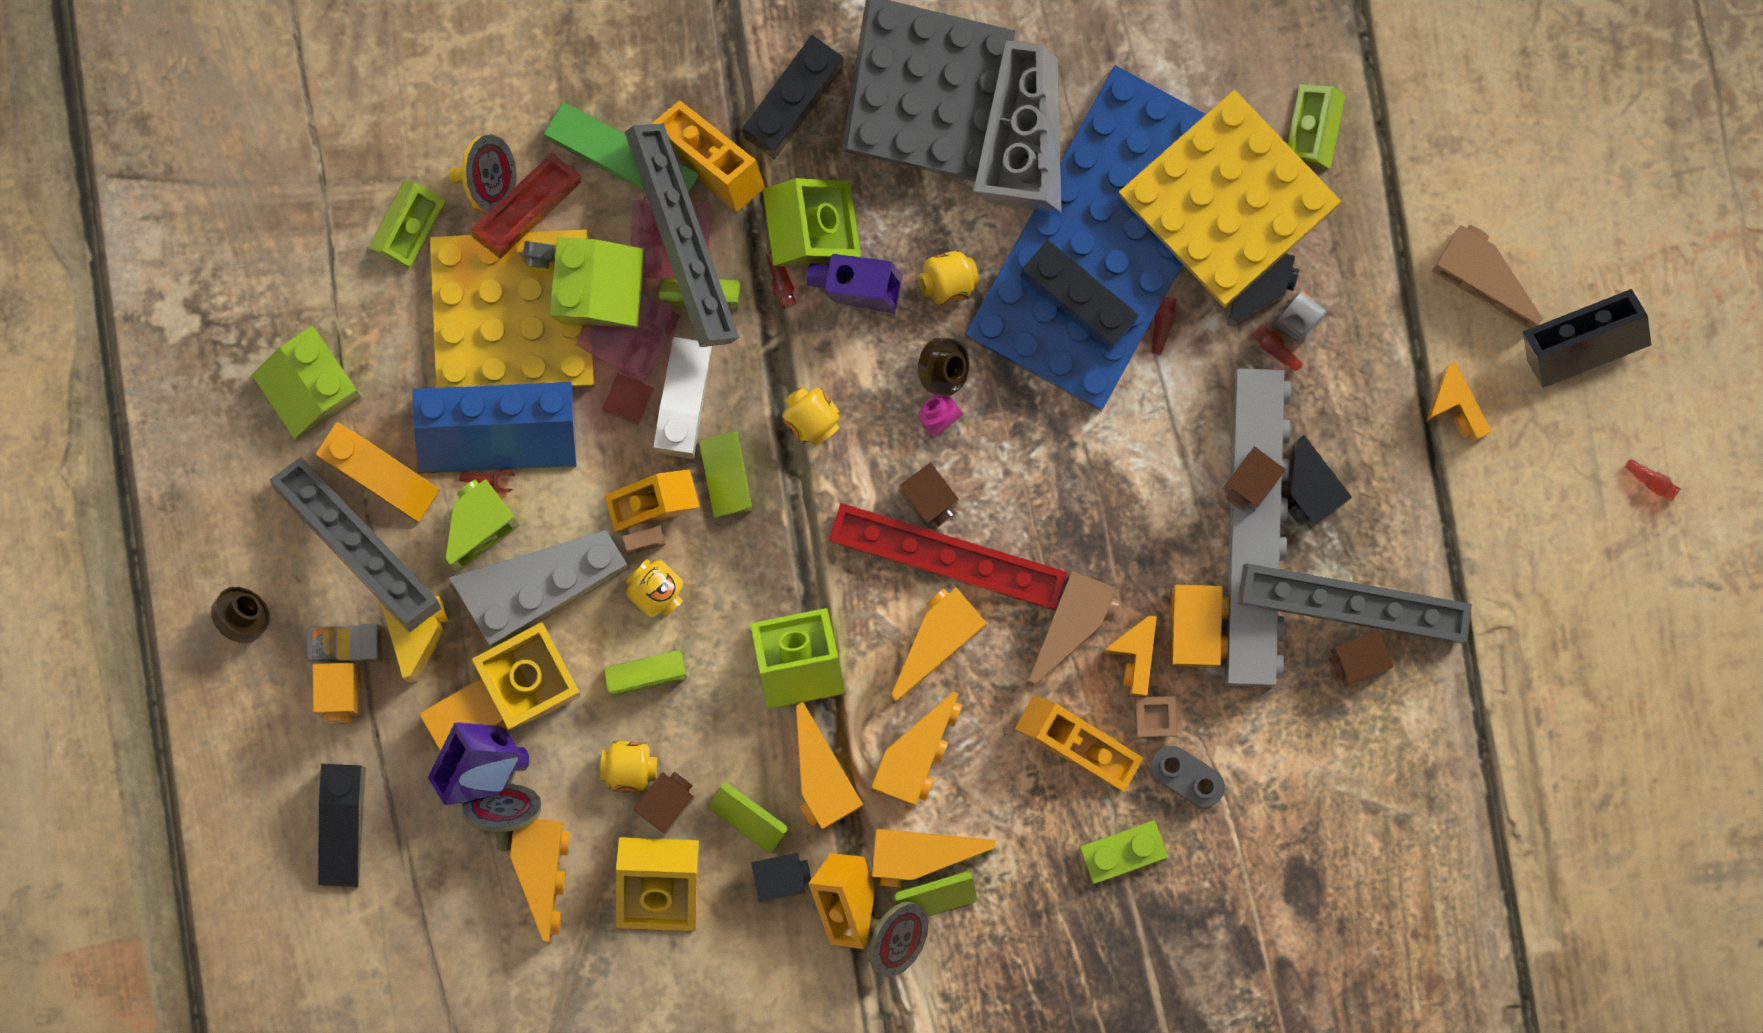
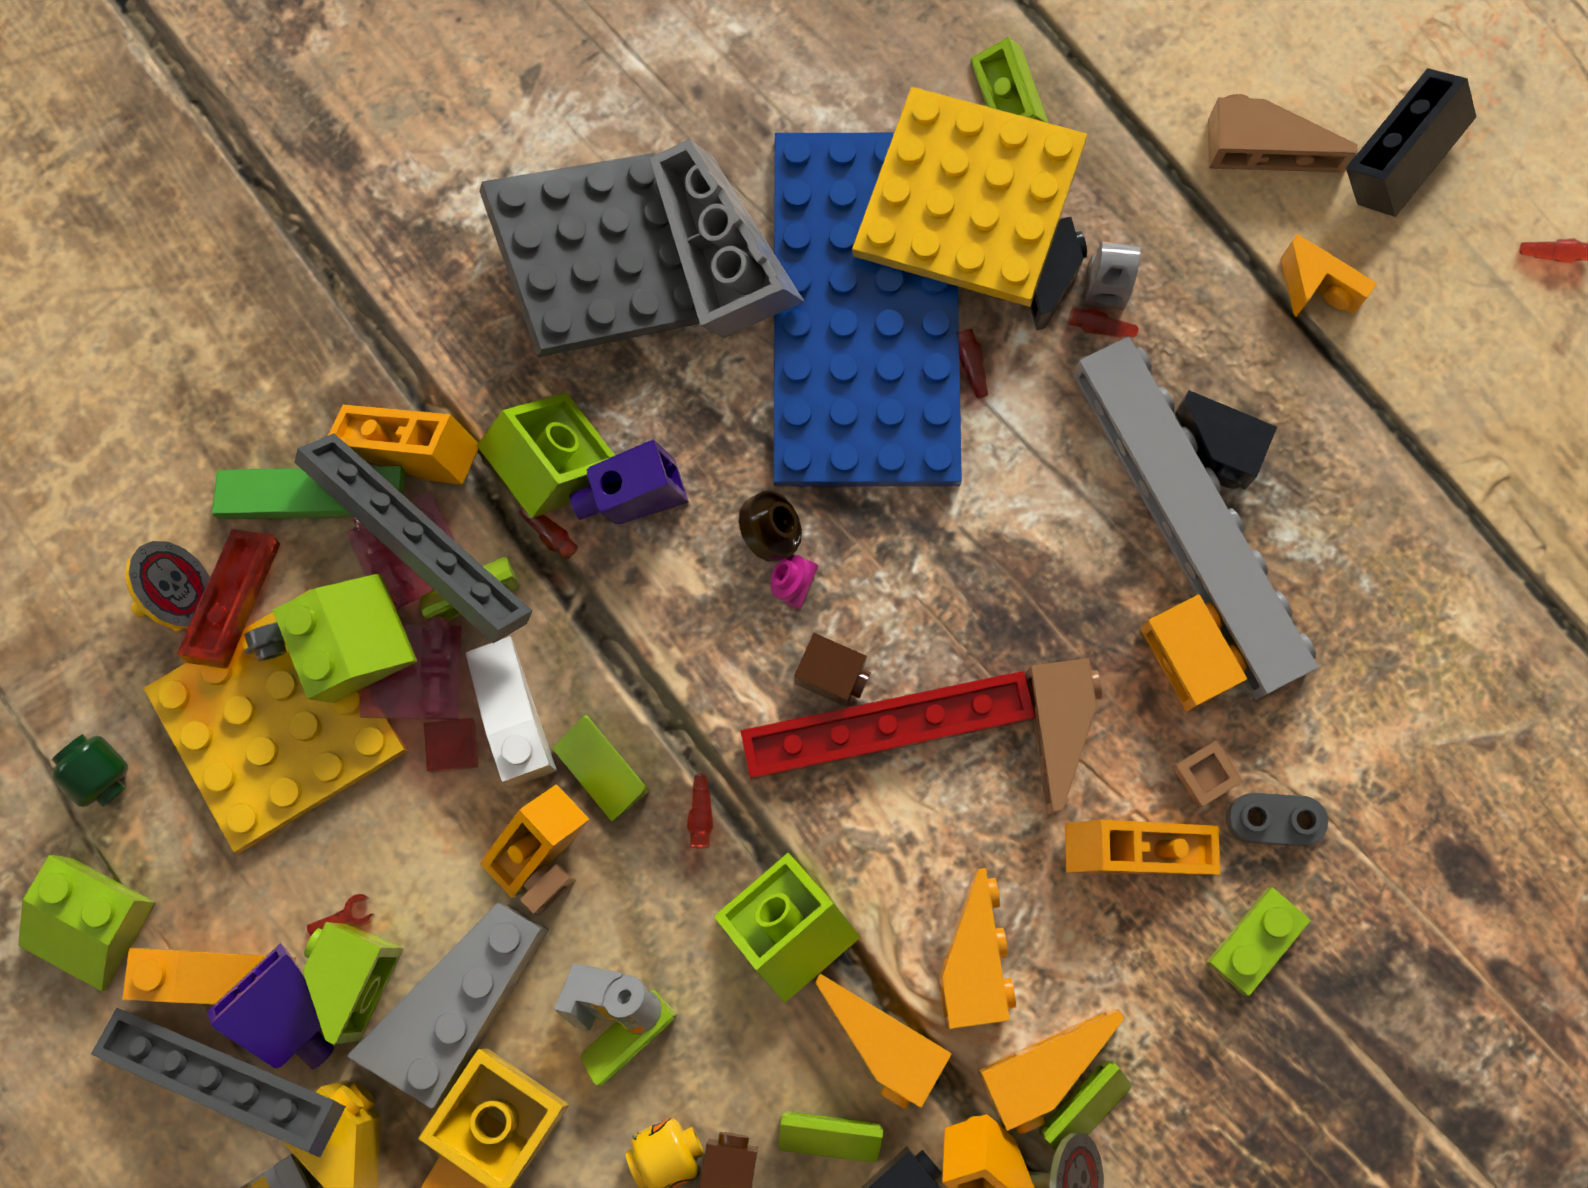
camera: 20 degrees left, 5 degrees down
(364, 278) = (89, 771): none -> dark green head
(407, 224) = (114, 688): lime slope -> none
(414, 520) = (273, 1013): none -> dark purple torso
(494, 427) = (316, 855): blue slope -> none
(647, 636) = (607, 996): none -> light grey leg
(654, 588) = (587, 936): yellow head -> none
(778, 548) = (700, 816): none -> clear red piece
(793, 97) = (459, 335): black brick -> none
(811, 415) = (657, 654): yellow head -> none
(941, 634) = (927, 816): light orange slope -> none
(948, 278) = (724, 432): yellow head -> none
(1079, 295) = (872, 372): black brick -> none
(1137, 644) = (1146, 705): light orange slope -> none
(1253, 480) = (1169, 462): reddish brown brick -> none
(1354, 603) = (1345, 536): dark grey plate -> none
(1360, 659) = (1384, 591): reddish brown brick -> none

